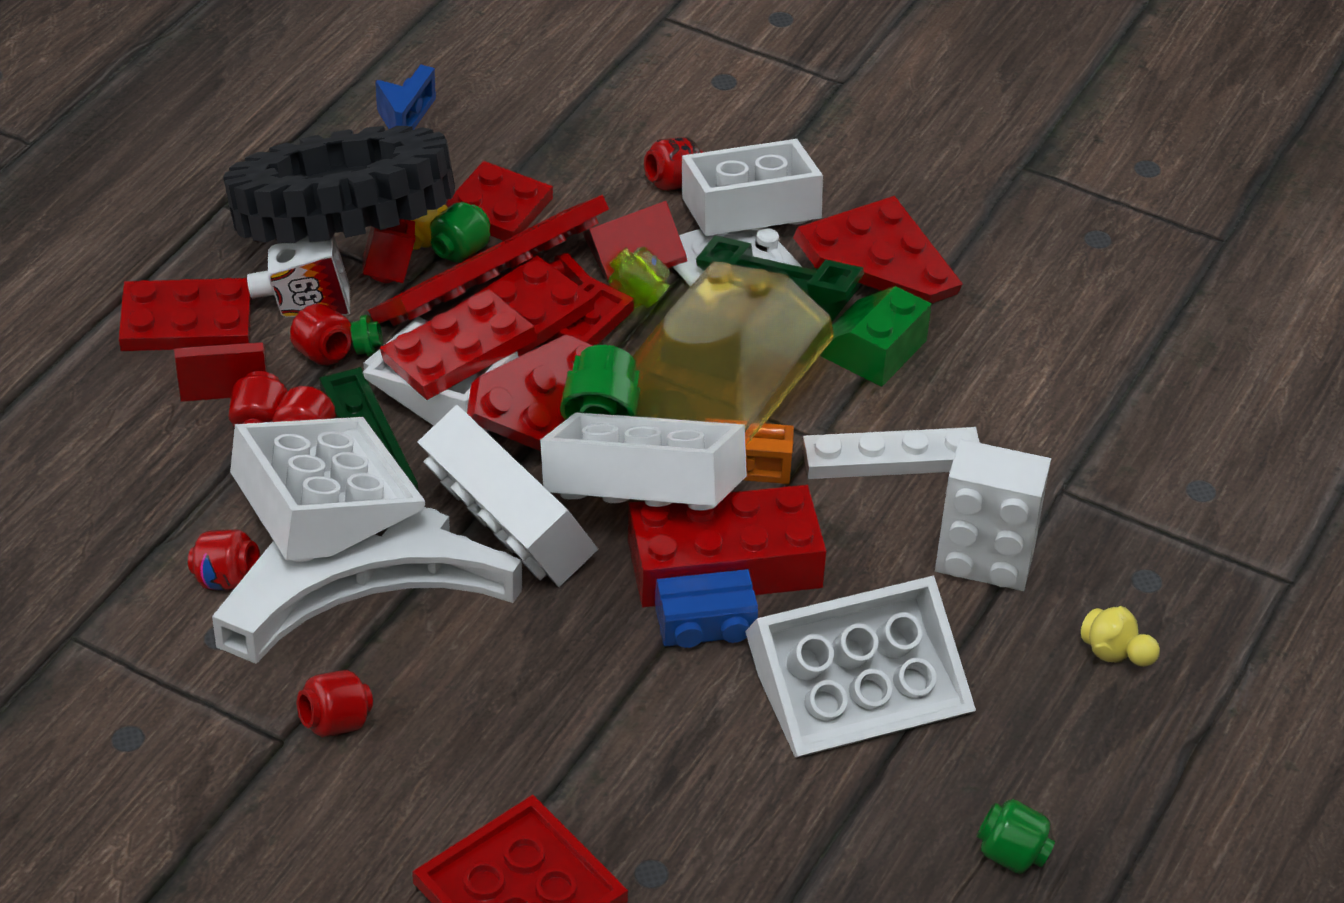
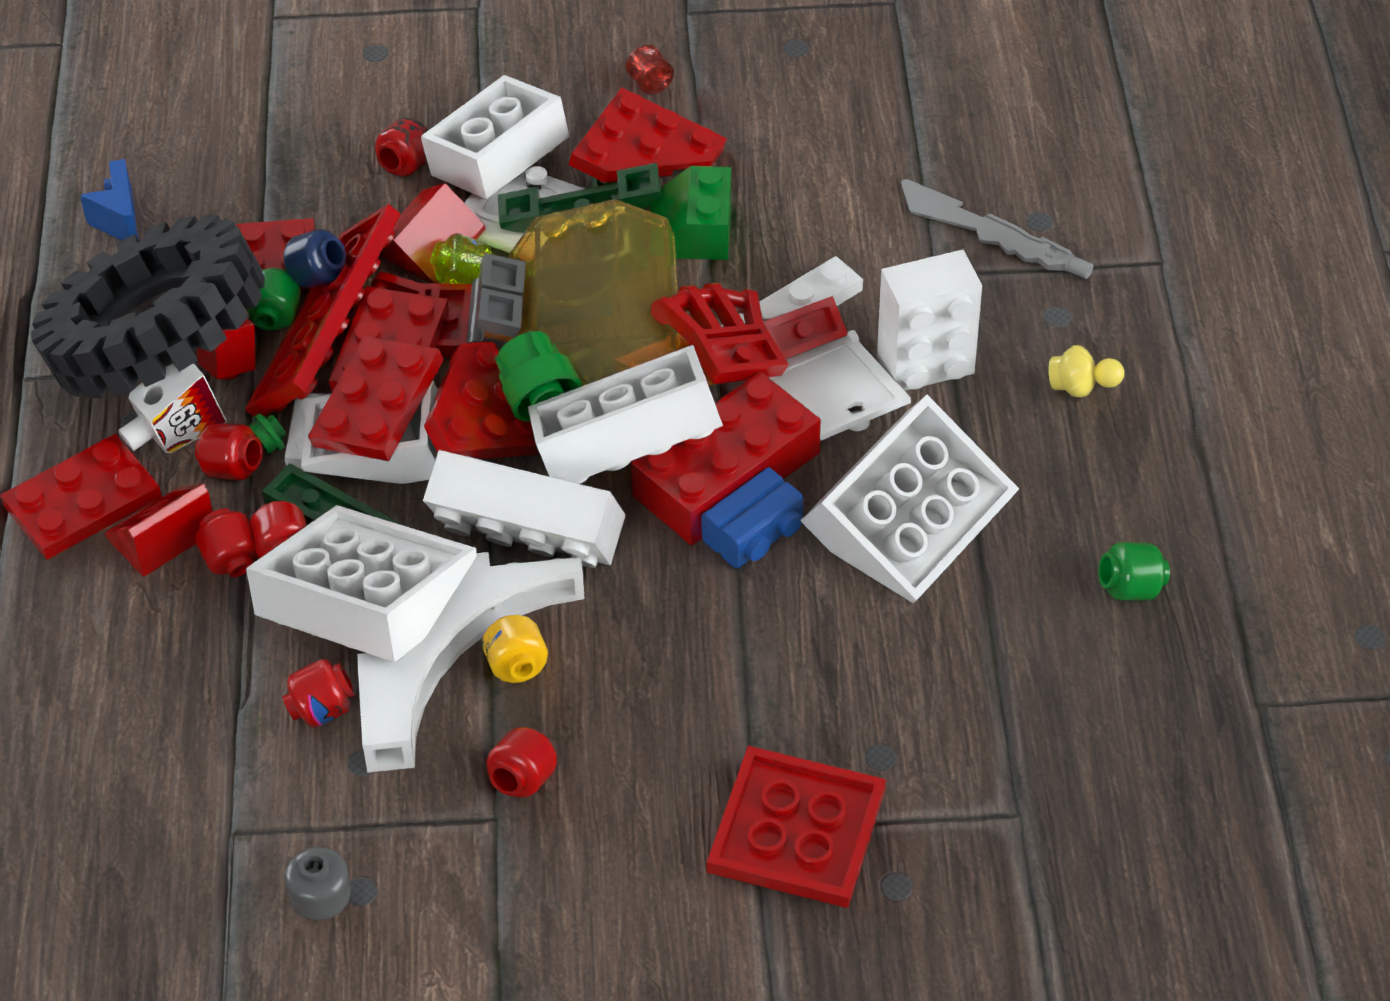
camera: 30 degrees left, 5 degrees up
(87, 708) = (317, 883): none -> dark grey head
(410, 605) = (512, 646): none -> yellow head
(511, 211) = (314, 258): none -> dark blue head
(630, 313) = (496, 301): none -> dark grey hips
(791, 453) = (728, 351): none -> red plate
(880, 530) = (838, 378): none -> white container
(886, 473) = (807, 327): none -> red plate
(944, 205) = (649, 69): none -> clear red wheel
(1147, 477) = (993, 230): none -> light grey sword

